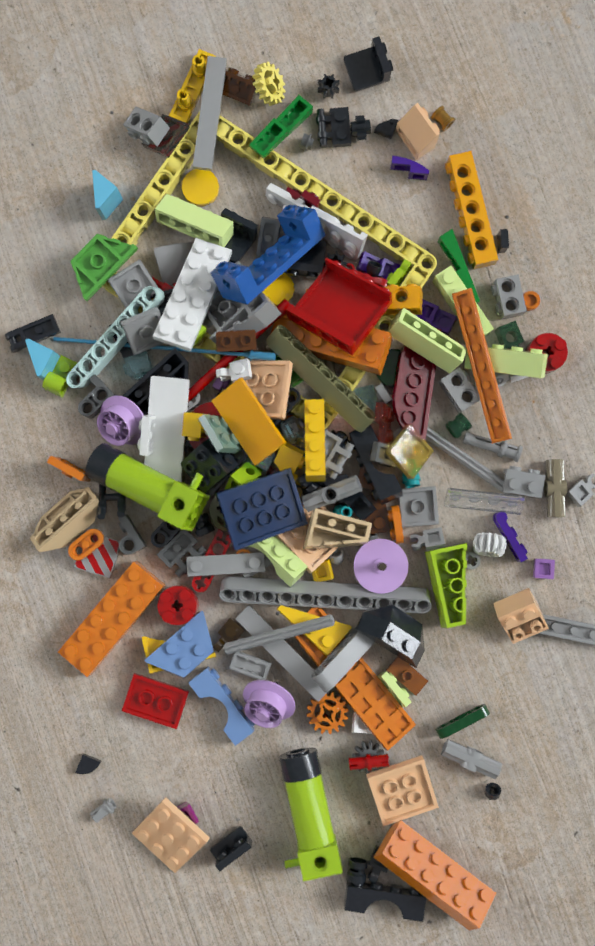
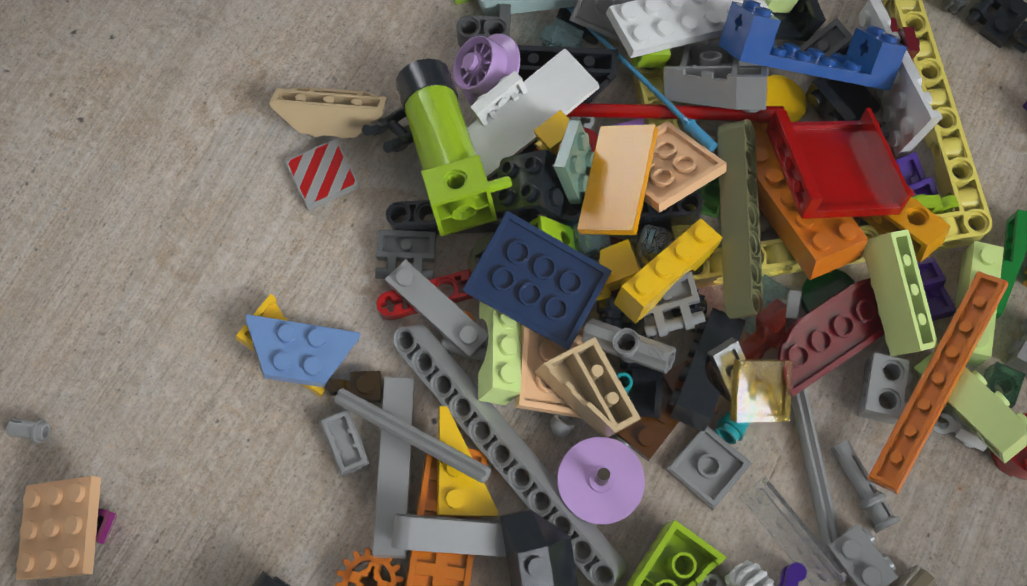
camera: 45 degrees right, 15 degrees down
(68, 468) = (386, 62): orange plate -> none
(86, 543) = (324, 147): orange plate -> none
(87, 764) = (70, 366): black tile -> none
(111, 618) = (263, 245): orange brick -> none
(133, 534) = (376, 186): dark grey plate -> none
(155, 701) = (209, 374): red plate -> none
(170, 613) = (342, 284): red brick -> none
(203, 525) = (456, 249): black wheel -> none
(208, 685) = (262, 489): medium blue arch -> none
(236, 340) = (687, 91): reddish brown bracket -> none
(237, 370) = (667, 127): white plate -> none
(267, 703) = (318, 497): lavender piece -> none
(323, 572) = (530, 424): yellow plate -> none
(373, 268) = (910, 174): black hinge -> none
(397, 531) = (655, 467): orange plate -> none
(431, 539) = (687, 513): light grey plate -> none
(458, 425) = (845, 424): clear green wheel -> none

